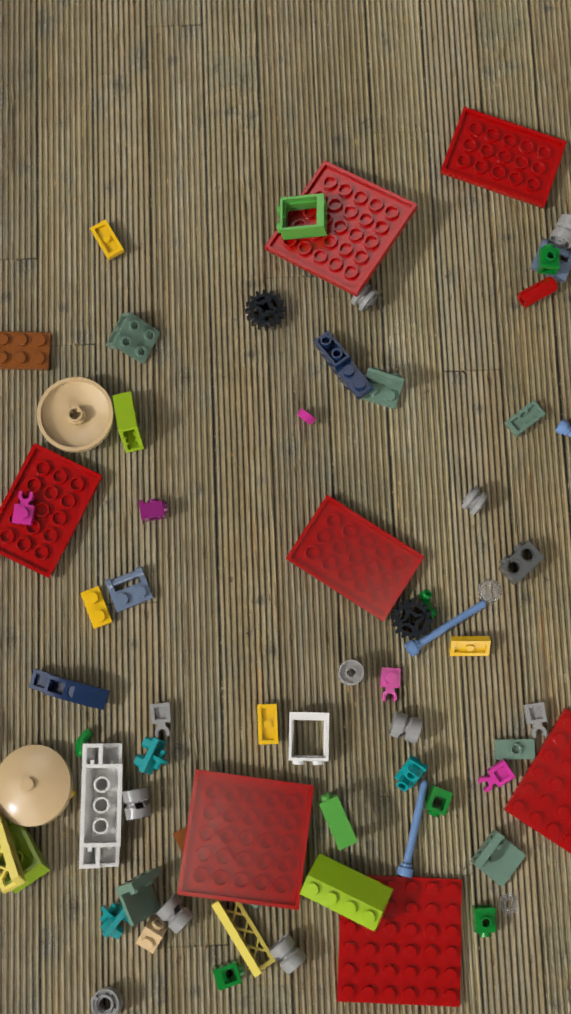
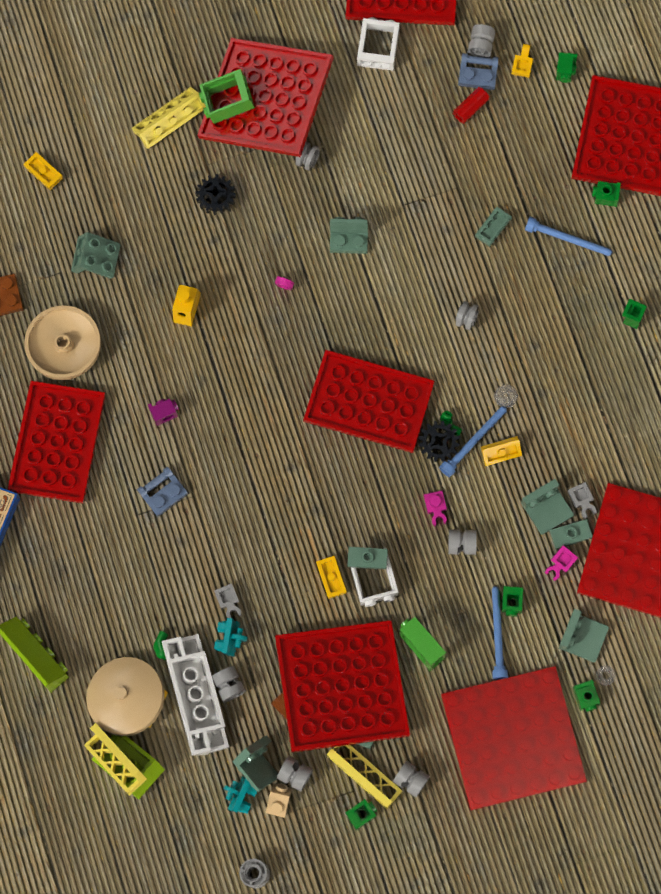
camera: 10 degrees left, 5 degrees down
(24, 512) = (40, 447): dark pink plate -> none
(69, 689) = (133, 598): dark blue slope -> none
(96, 607) = (136, 517): yellow plate -> none
(127, 422) = (115, 336): lime slope -> none
(204, 410) = (187, 303): none -> yellow torso
(242, 221) = (168, 119): none -> light yellow fence
(308, 718) = (367, 558): none -> sand green plate
(342, 365) = (305, 226): dark blue slope -> none
(347, 891) = (450, 704): lime slope -> none
(350, 672) = (395, 506): light grey wheel -> none
(410, 773) = (478, 582): teal hips -> none
(456, 221) = (376, 60): none -> white window
(499, 717) = (547, 507): none -> sand green bracket
(523, 566) = (530, 362): dark grey brick -> none
(546, 265) = (470, 77): green brick -> none

